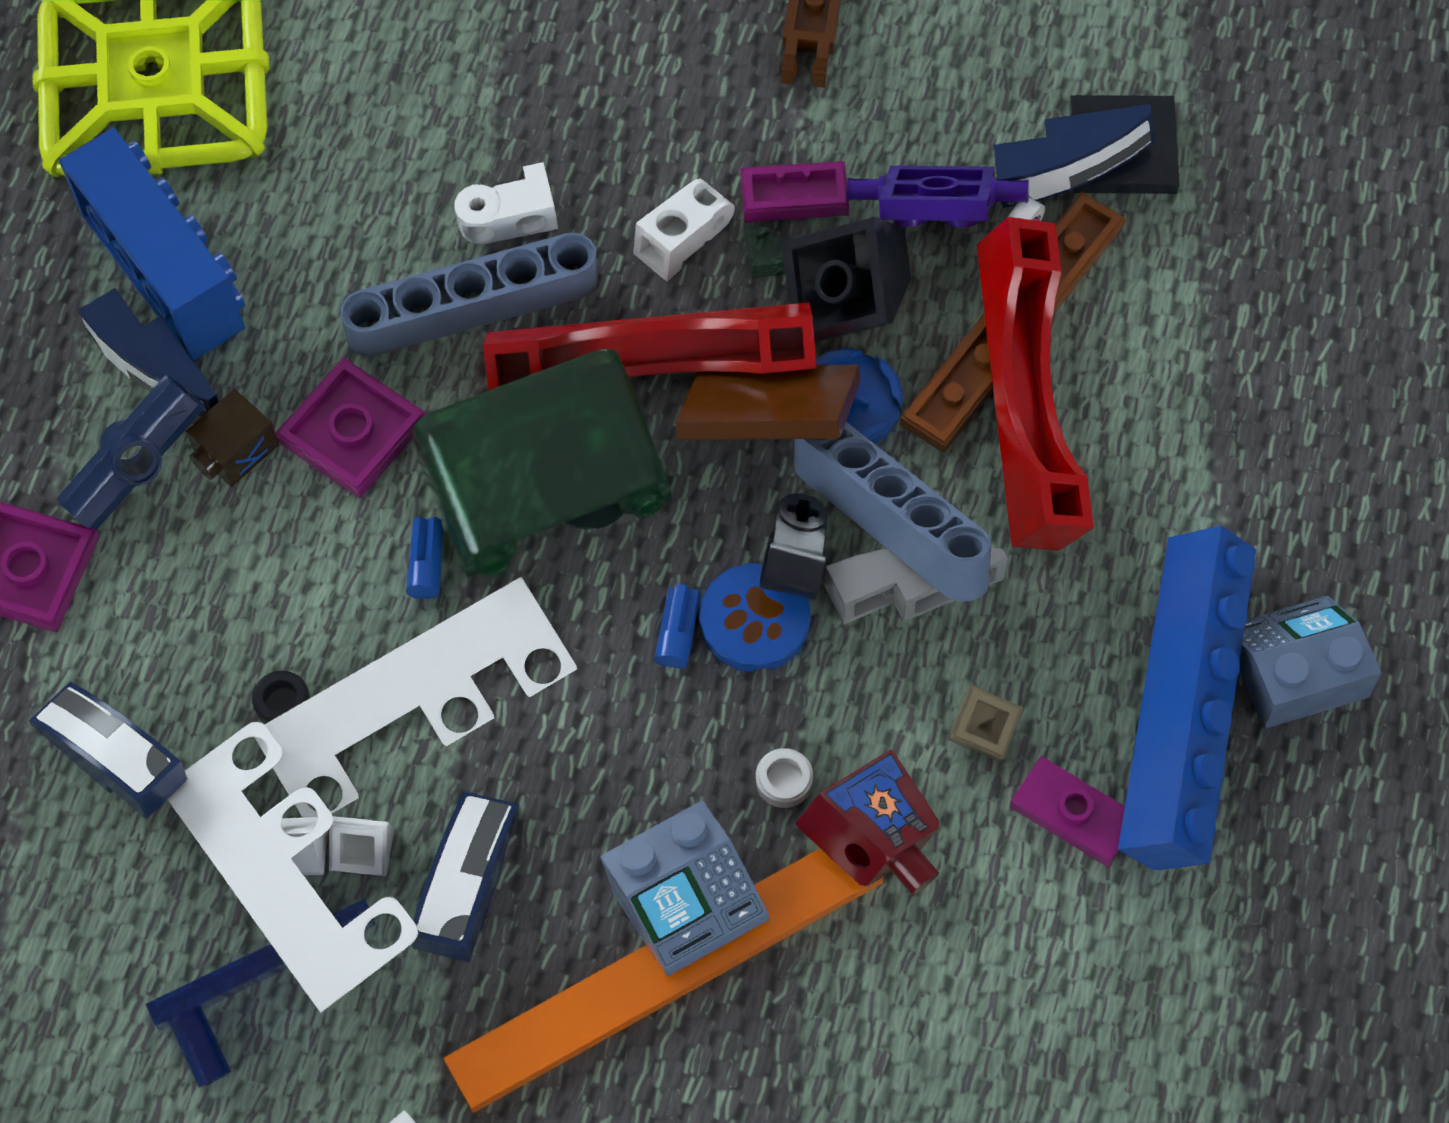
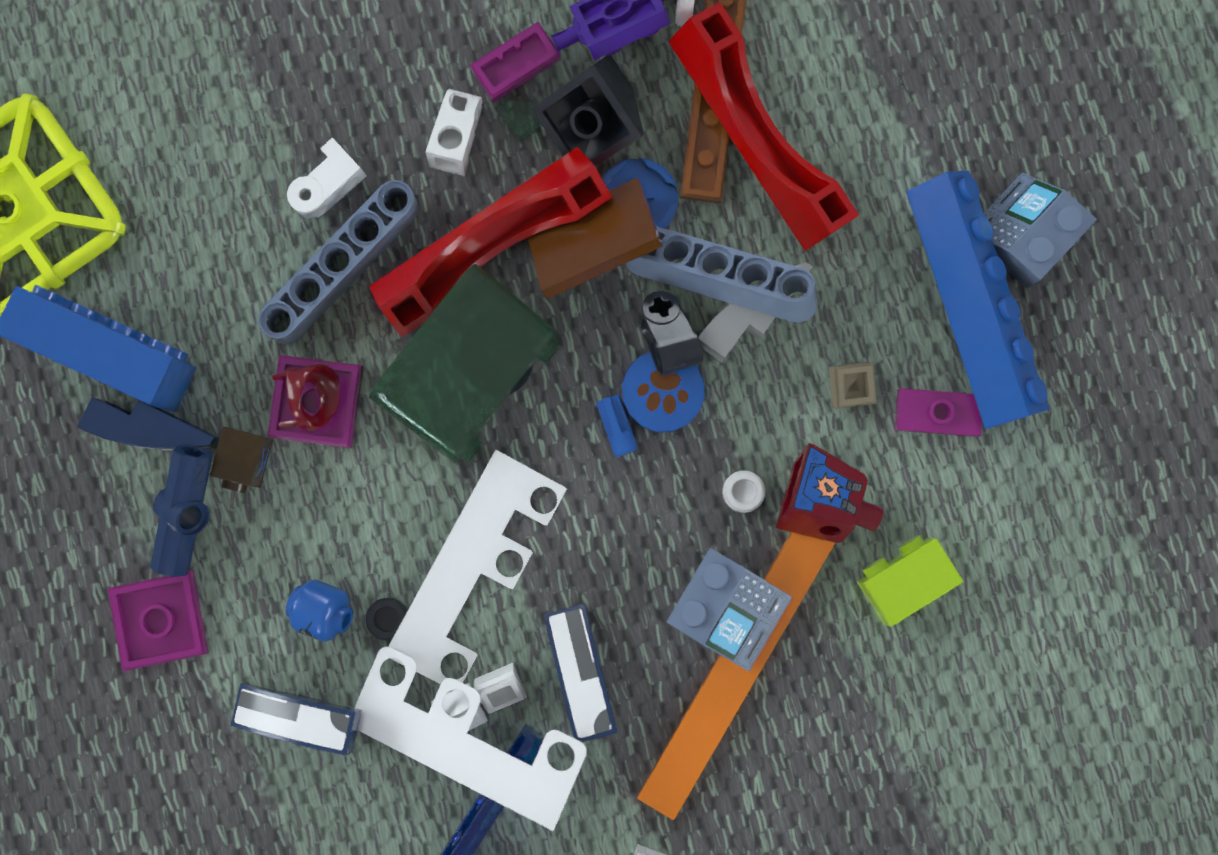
camera: 30 degrees left, 20 degrees up
(208, 641) = (319, 610): none -> blue head
(361, 383) = (327, 385): none -> dark red piece
(425, 558) = (423, 469): blue piece -> none
(925, 978) = (909, 580): none -> lime brick

